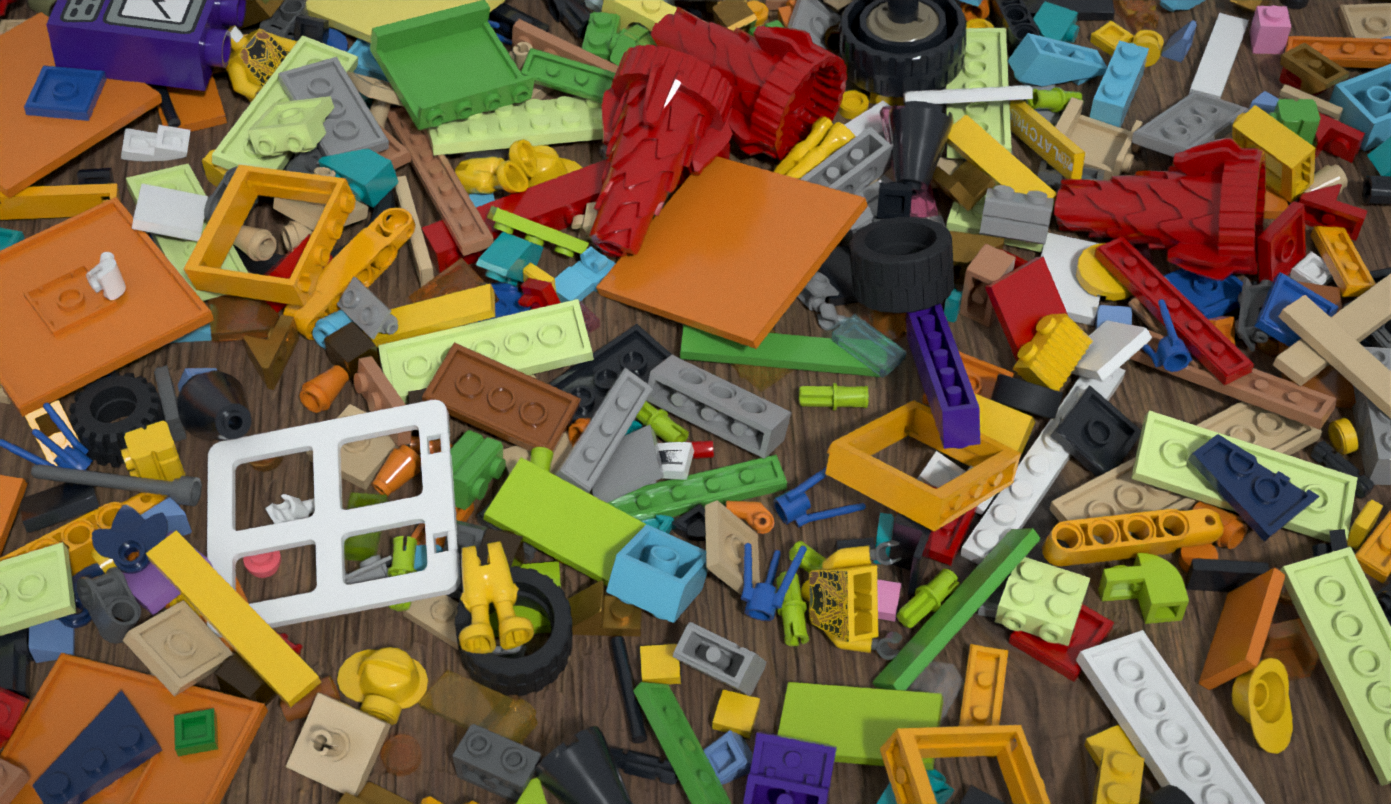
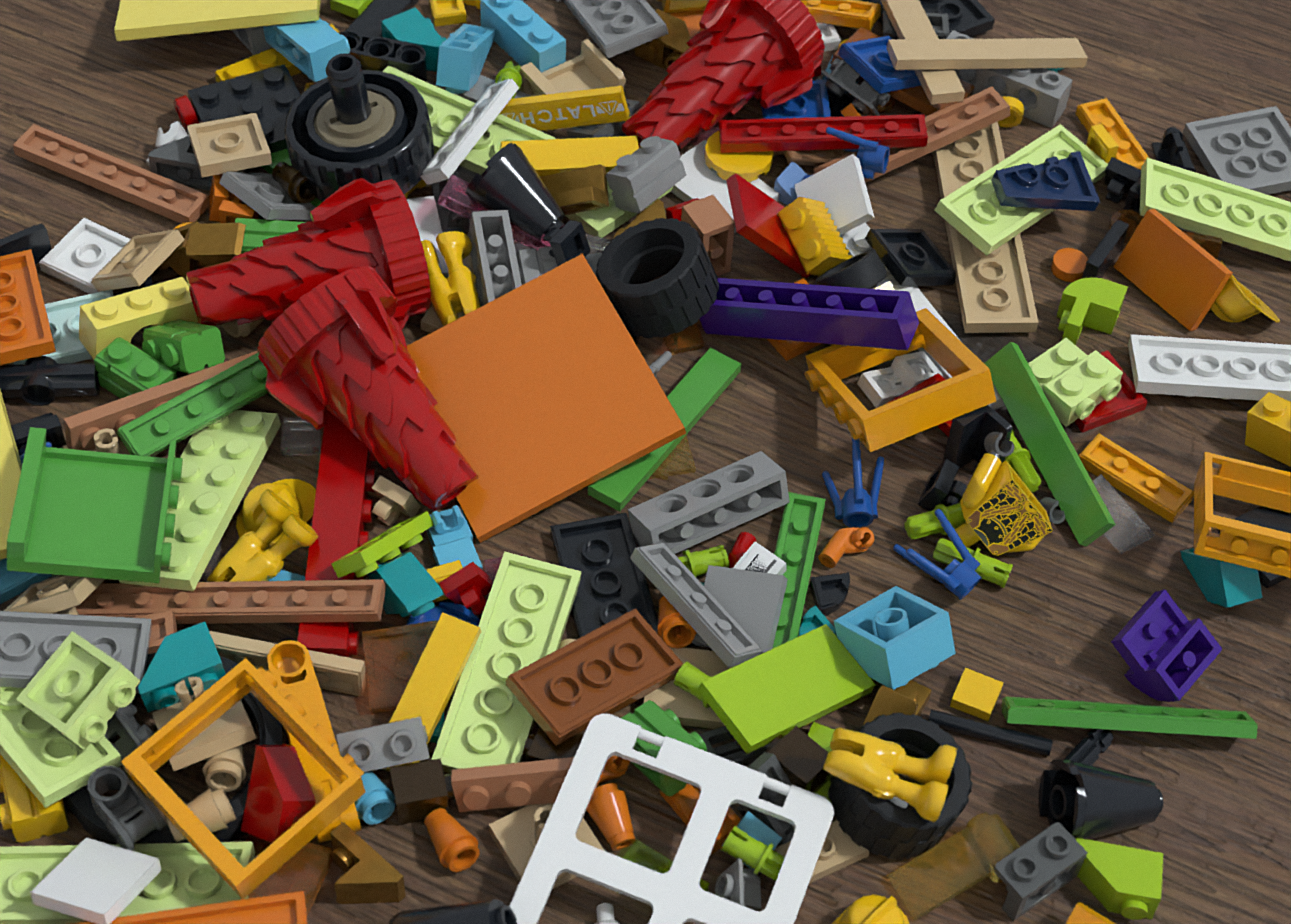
camera: 65 degrees left, 0 degrees up
(719, 658) = (1011, 637): light grey brick -> none
(725, 546) = (895, 572): tan tile -> none
(729, 757) = (1105, 685): medium blue slope -> none
(736, 713) = (1061, 660): yellow tile -> none
(834, 396) = (746, 416): lime axle -> none
(856, 718) = (1125, 569): lime tile -> none
(868, 345) = (710, 359): clear light blue tile -> none
(884, 531) = (933, 453): teal tile -> none
(1112, 739) = (1227, 417): yellow tile -> none
(1187, 526) = (1044, 290): light orange piece -> none
(1233, 526) = (1049, 232): orange cone -> none
(1324, 453) = (1027, 131): black axle -> none

